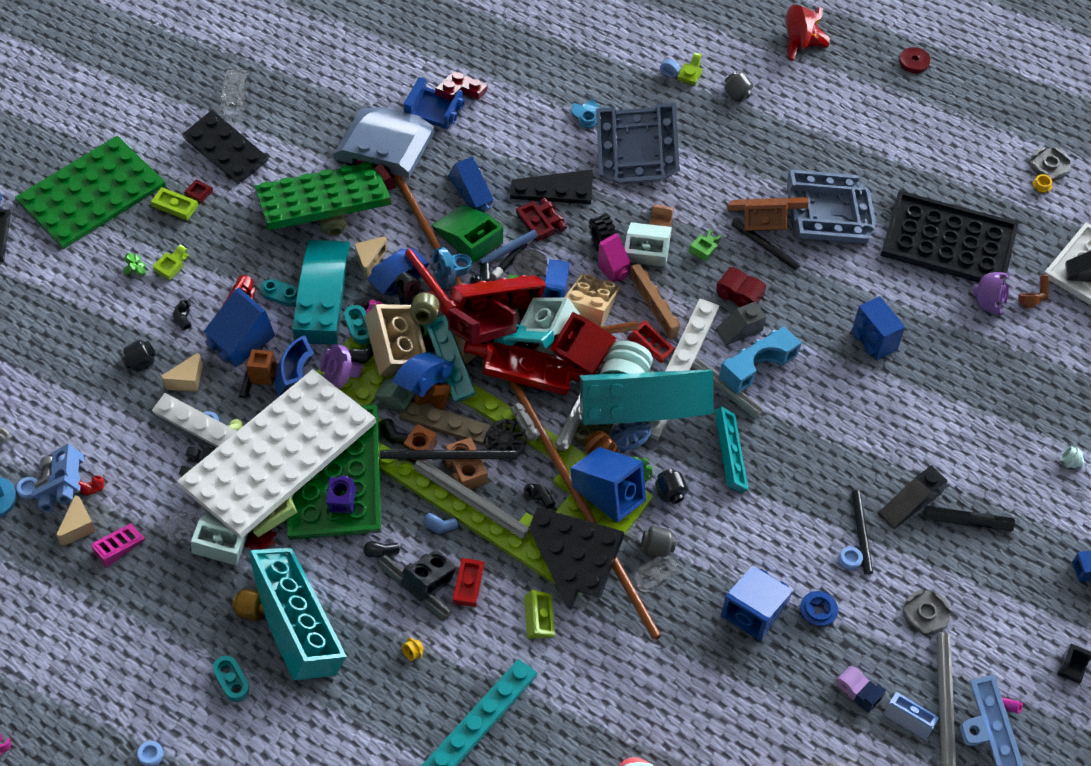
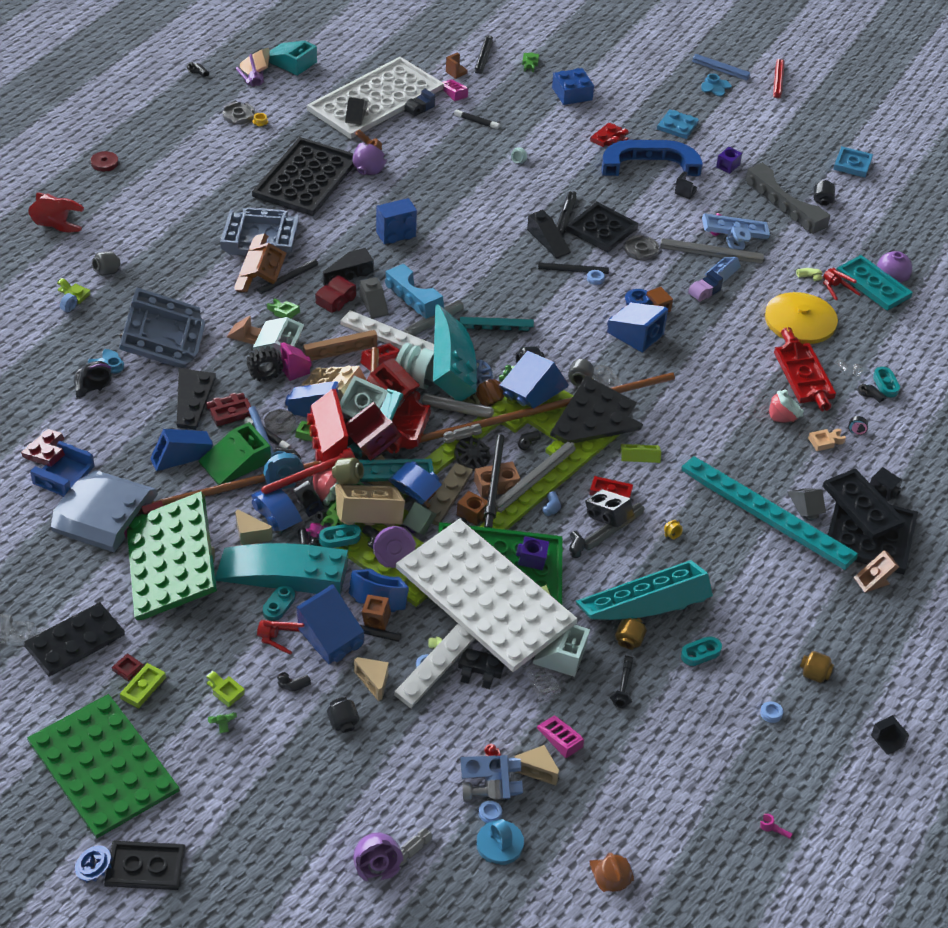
camera: 85 degrees left, 10 degrees down
(163, 598) = (622, 698): none -> black piece
(561, 102) = (92, 377): none -> black hair
(800, 300) = (352, 263): none -> black slope
(814, 629) = (660, 298): none -> dark orange panel
(952, 561) = (602, 227): none -> black plate

